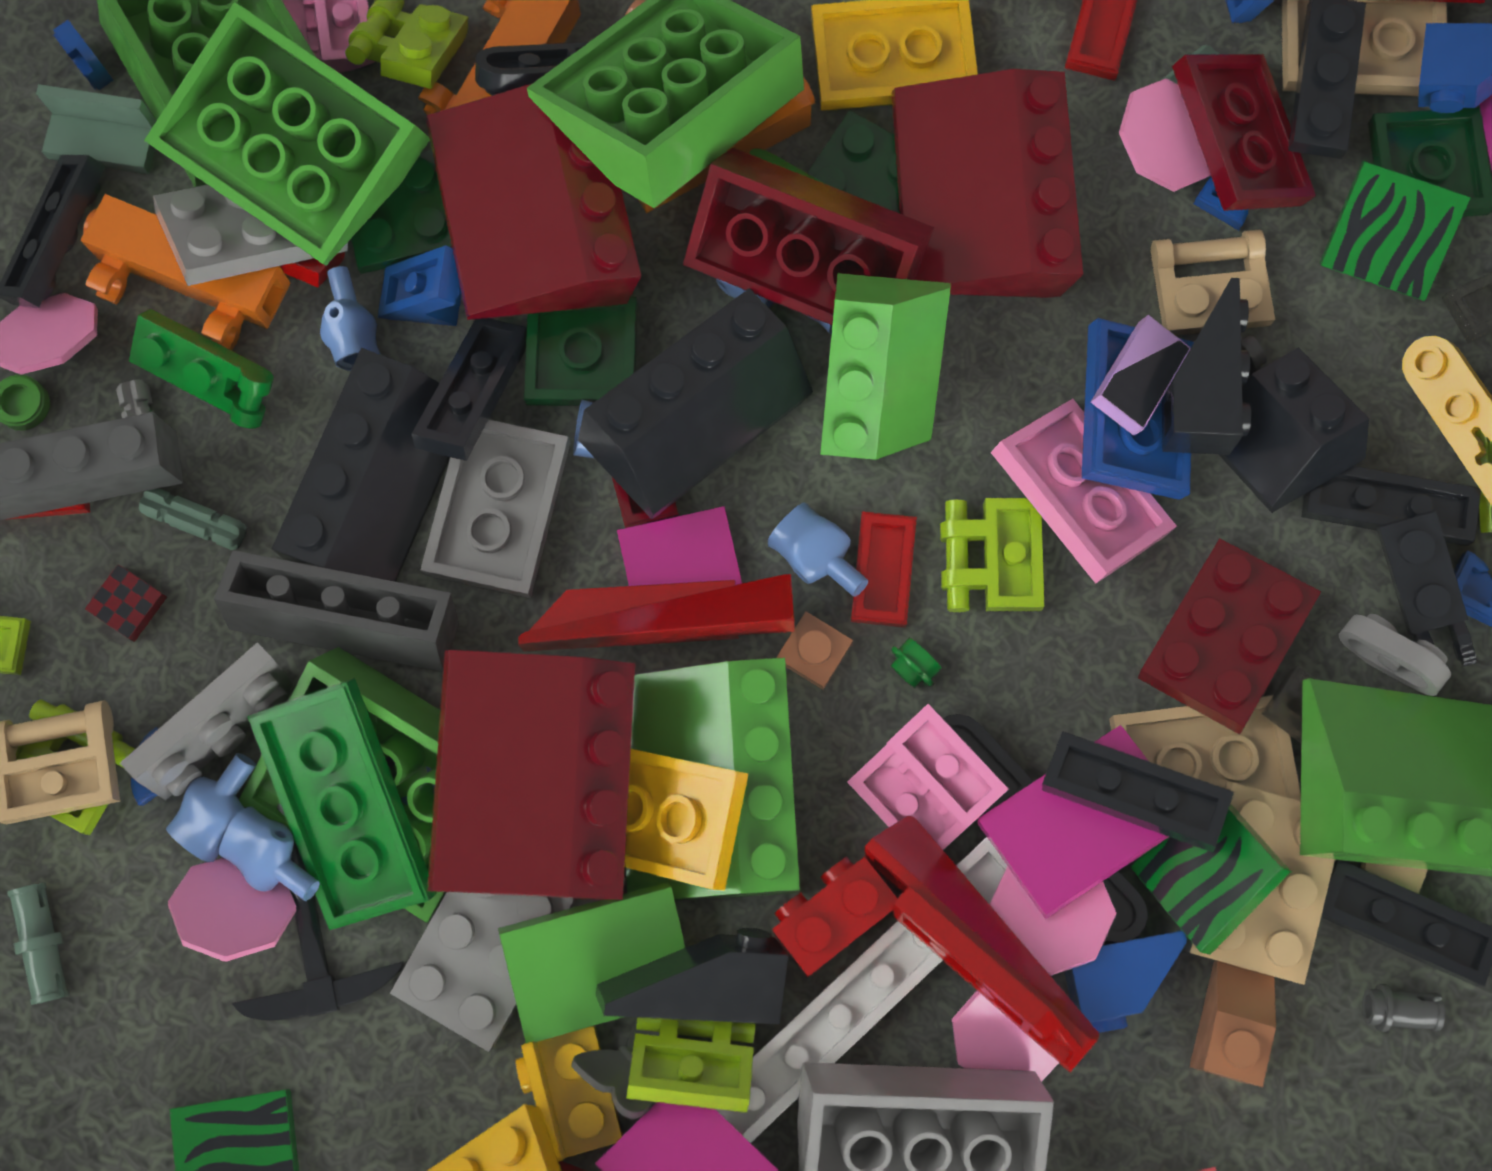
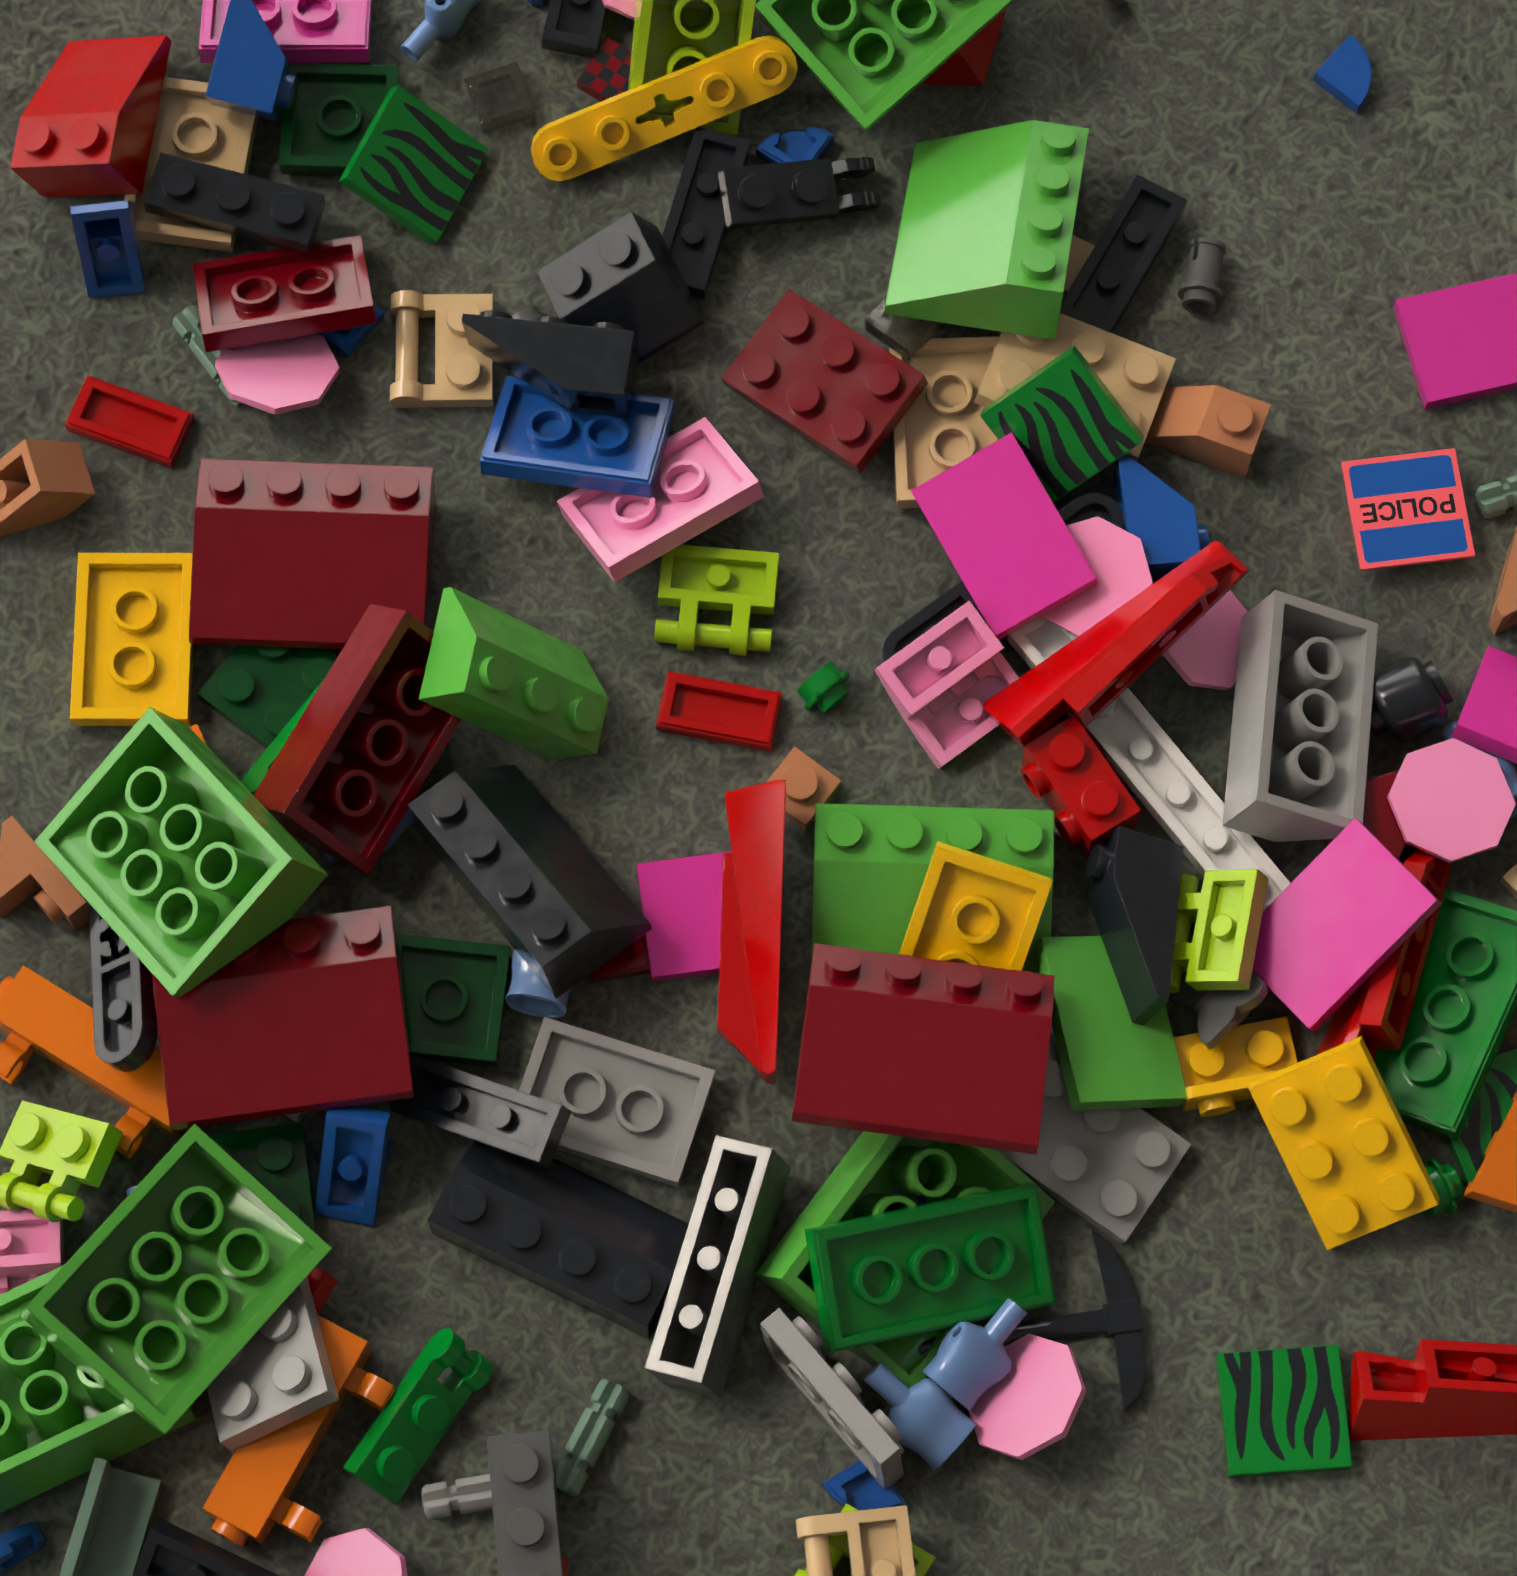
camera: 90 degrees left, 5 degrees down
(126, 603) = (678, 1515): tile -> none
(346, 323) = (403, 1248): medium blue piece -> none
(816, 549) = (695, 772): medium blue piece -> none
(1137, 791) = (984, 476): black plate -> none
(1140, 375) = (548, 425): tile -> none
(1380, 645) = (872, 213): light grey plate -> none

